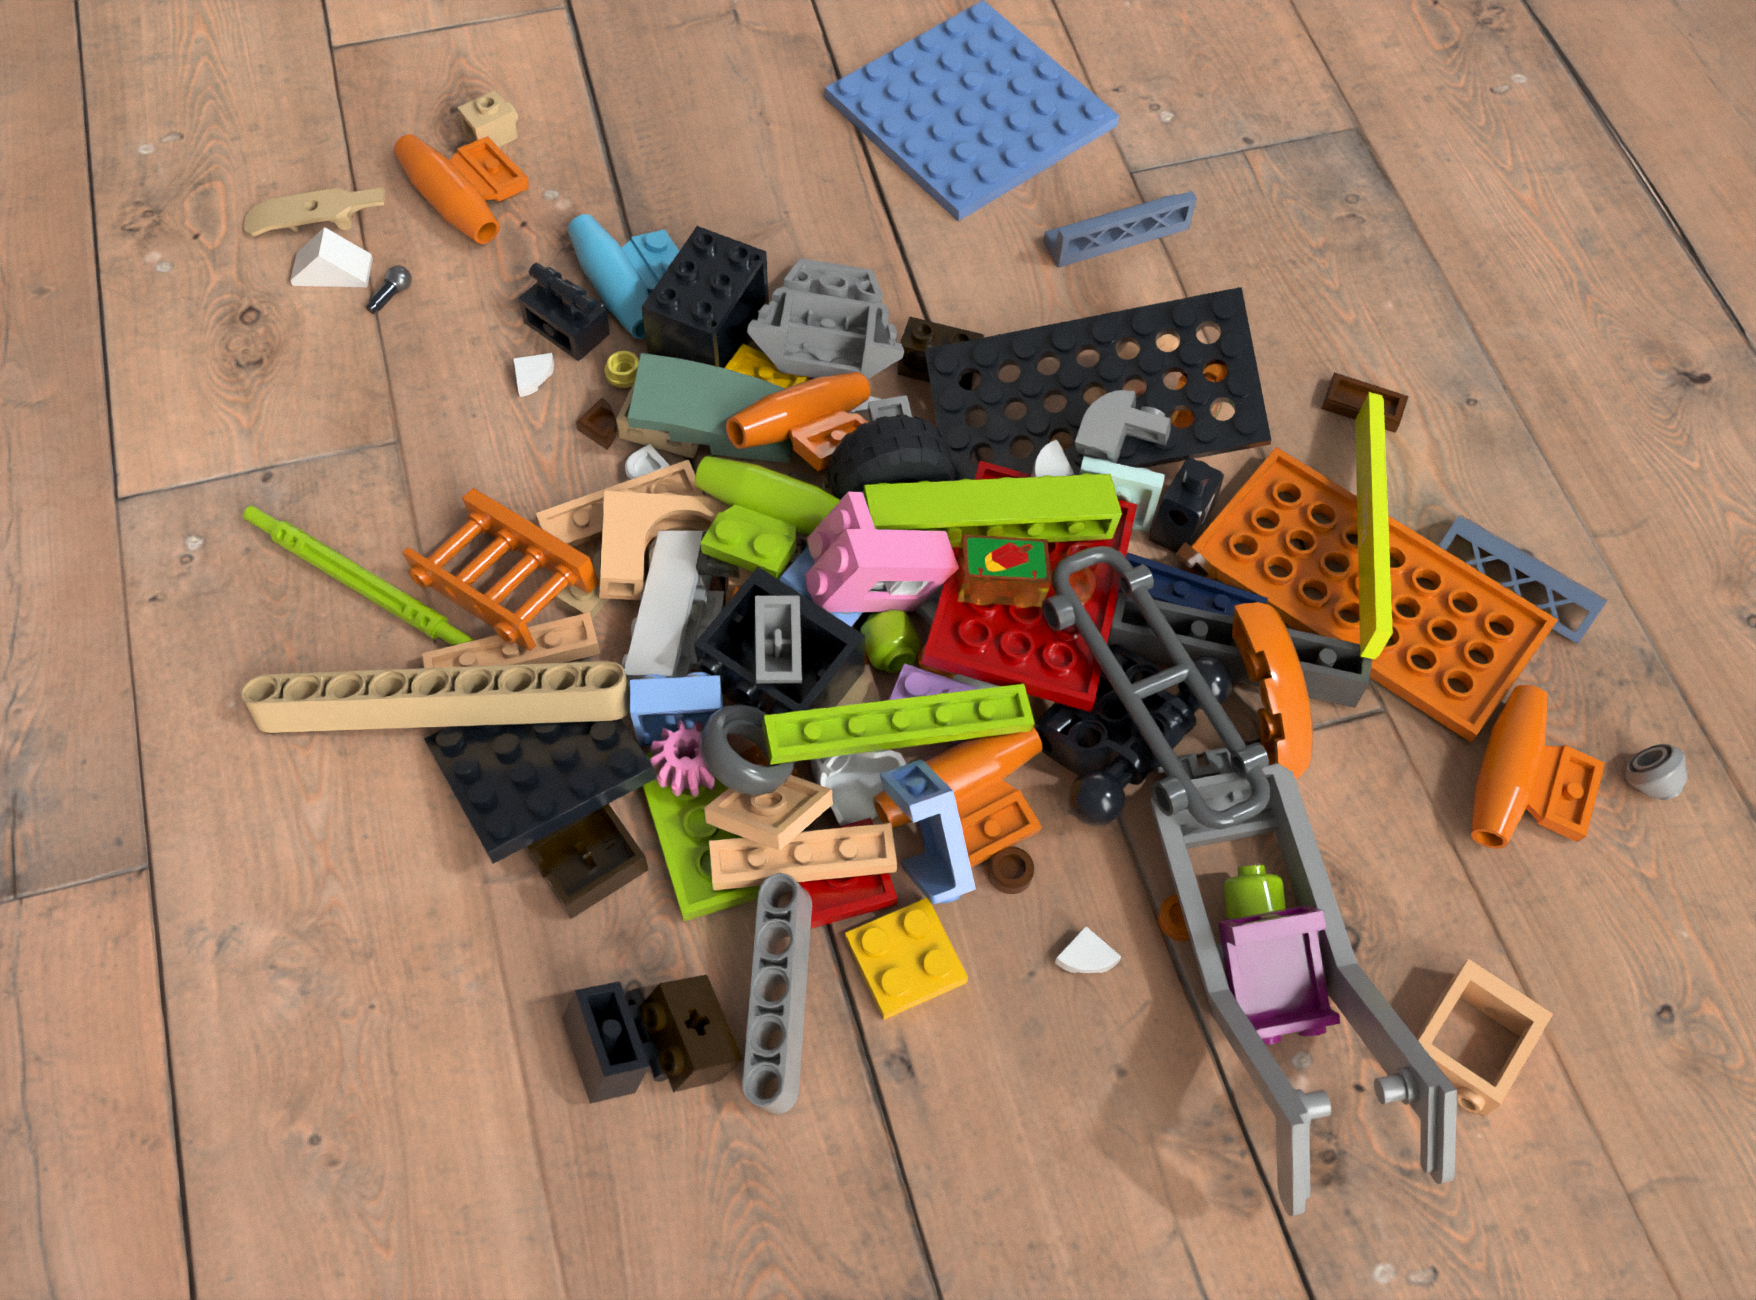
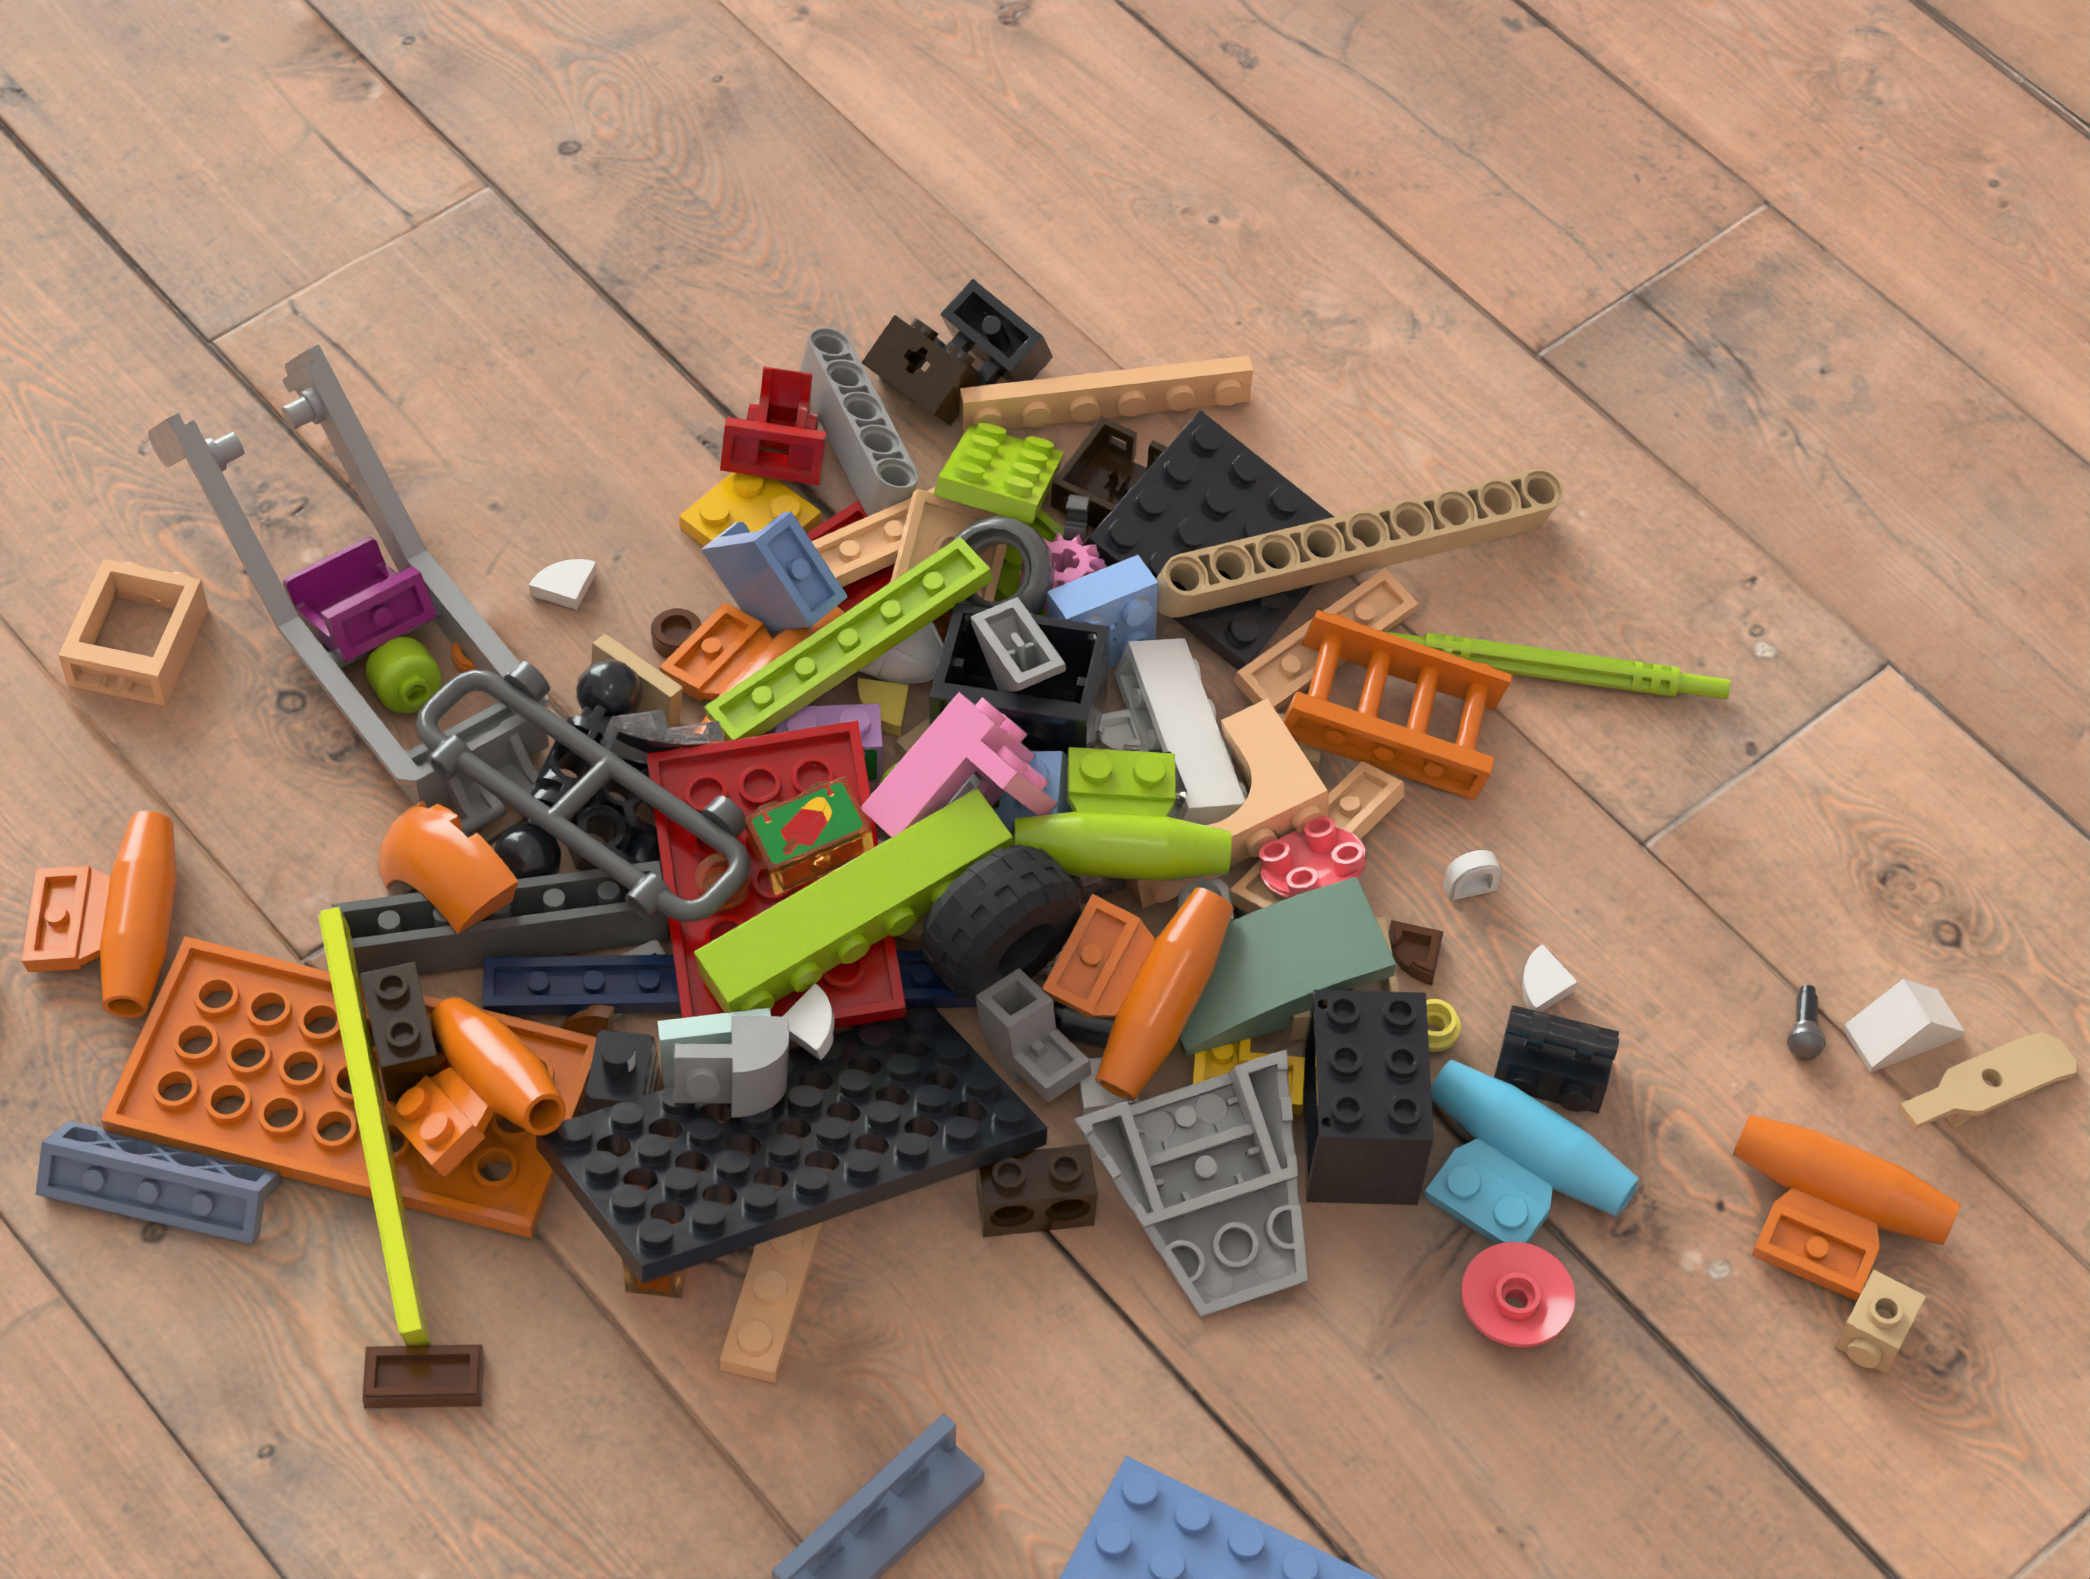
camera: 155 degrees right, 5 degrees down
(526, 945) = (1107, 394): none -> light nougat plate
(530, 446) = (1472, 875): none -> white tile
(641, 461) = (1311, 858): none -> coral dish
(645, 805) = (1077, 517): none -> dark grey bar
(682, 203) = (1520, 1273): none -> coral dish
(690, 862) = (1000, 472): none -> lime plate
(834, 1044) = (781, 423): none -> red tile
(1064, 822) = (657, 688): none -> tan tile
(1091, 714) = (648, 732): none -> clear slope
(1297, 503) = (487, 1075): none -> orange plate
(1337, 579) = (399, 1027): none -> dark brown brick

